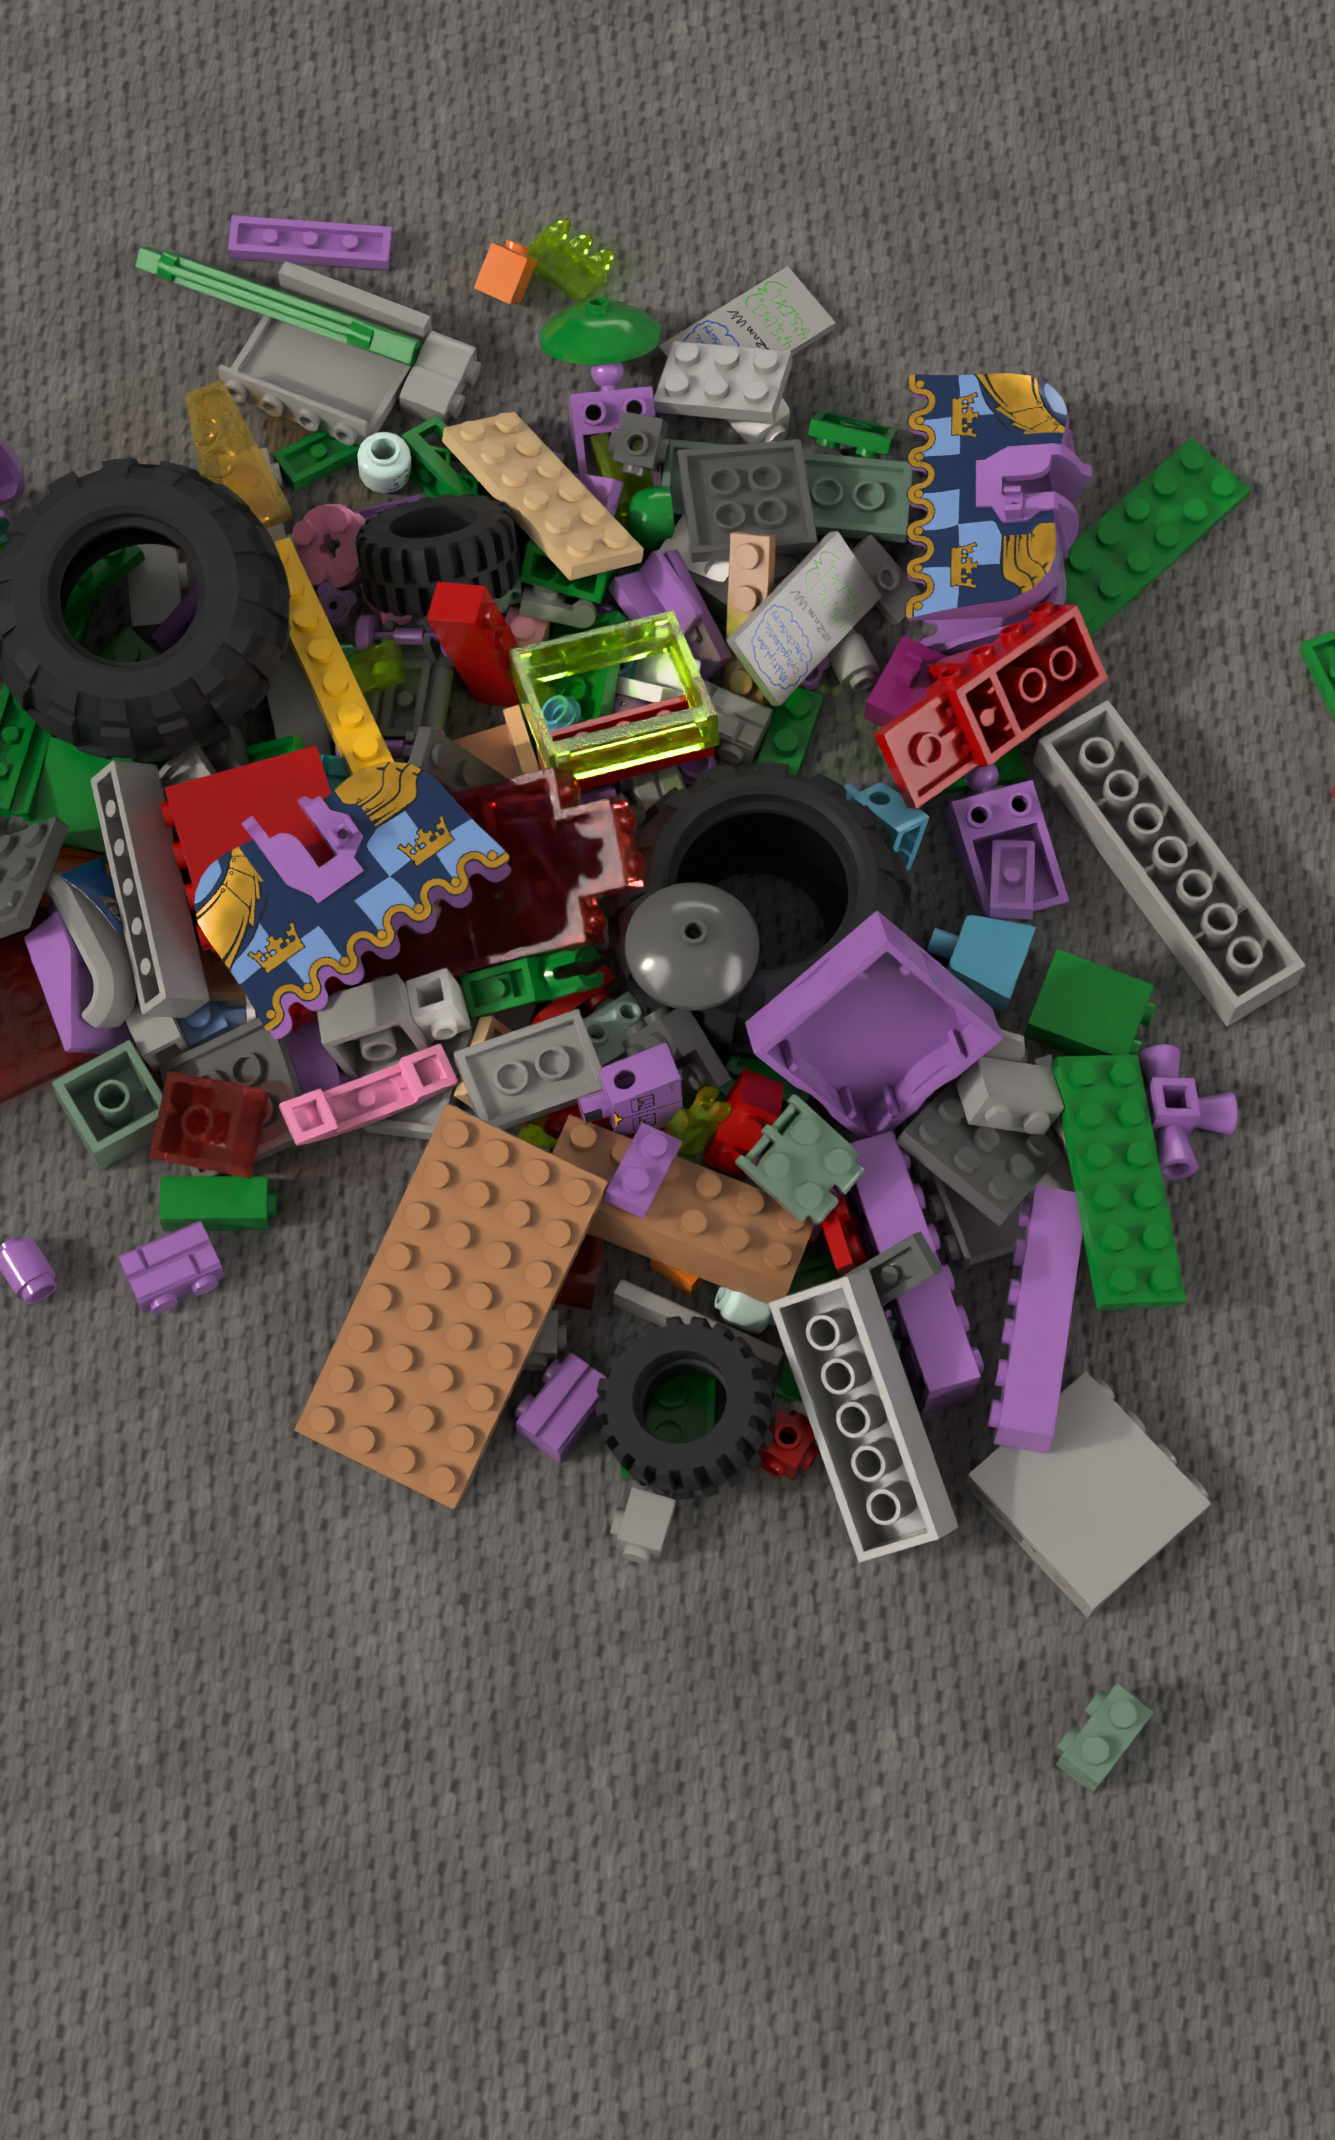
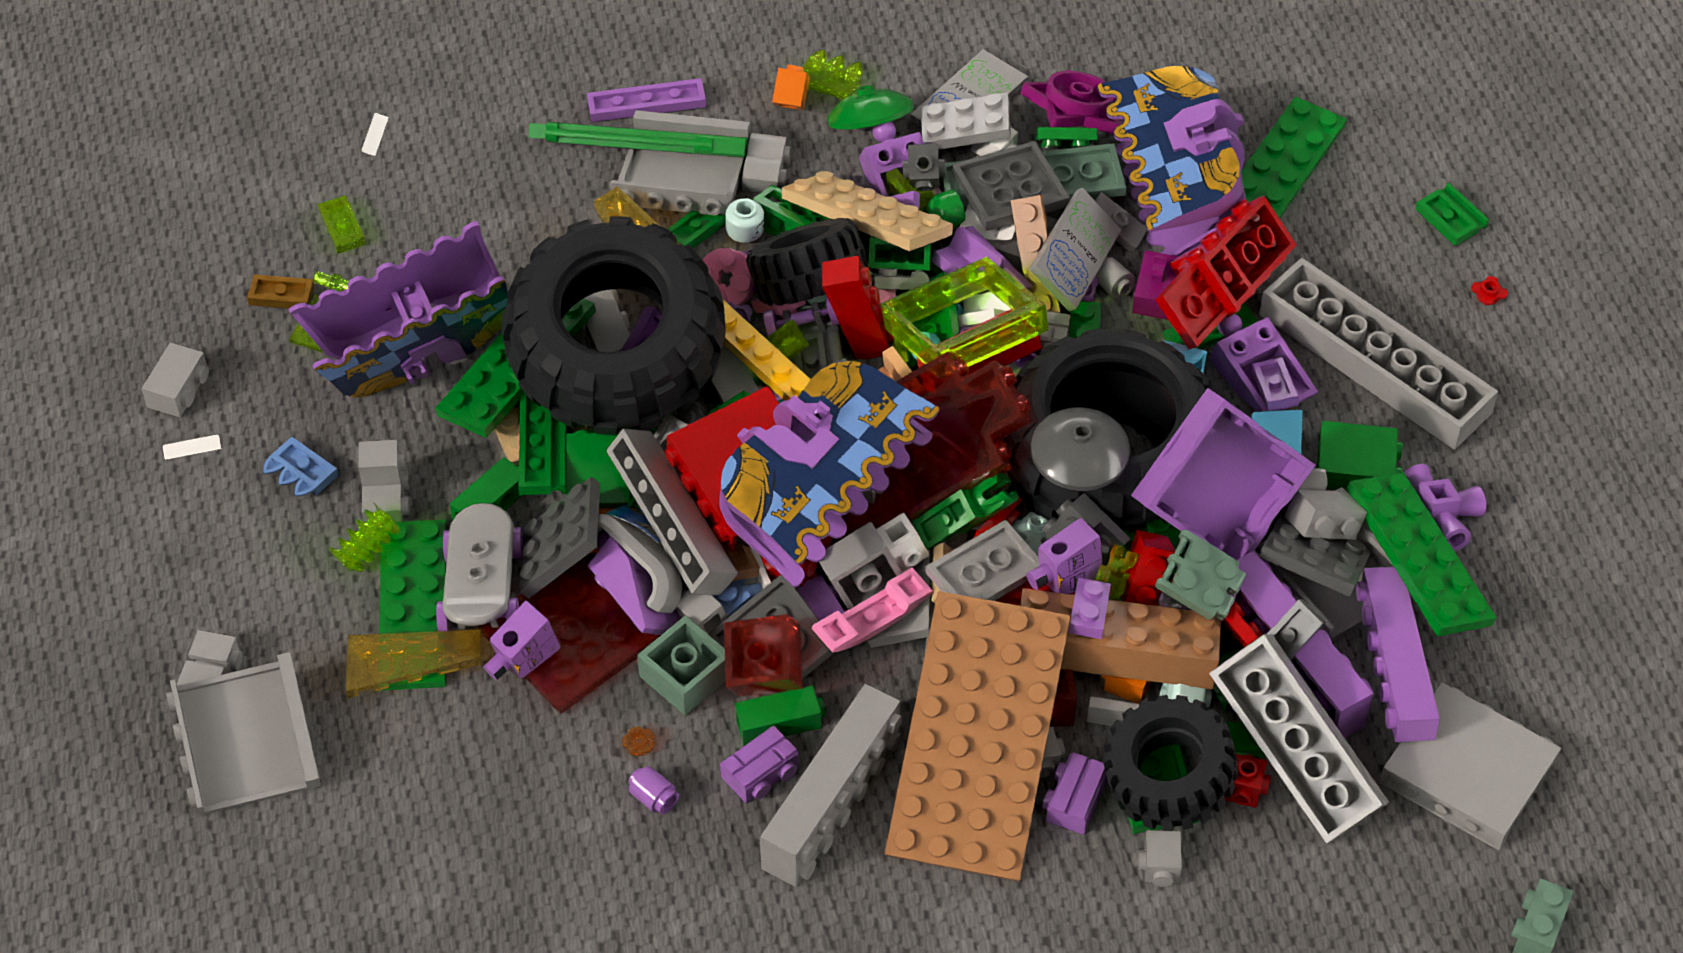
camera: 10 degrees left, 15 degrees down
(34, 1204) = (639, 748): none -> clear orange plate
(248, 1324) = (831, 786): none -> light grey brick
(875, 376) = (1072, 100): none -> magenta plate

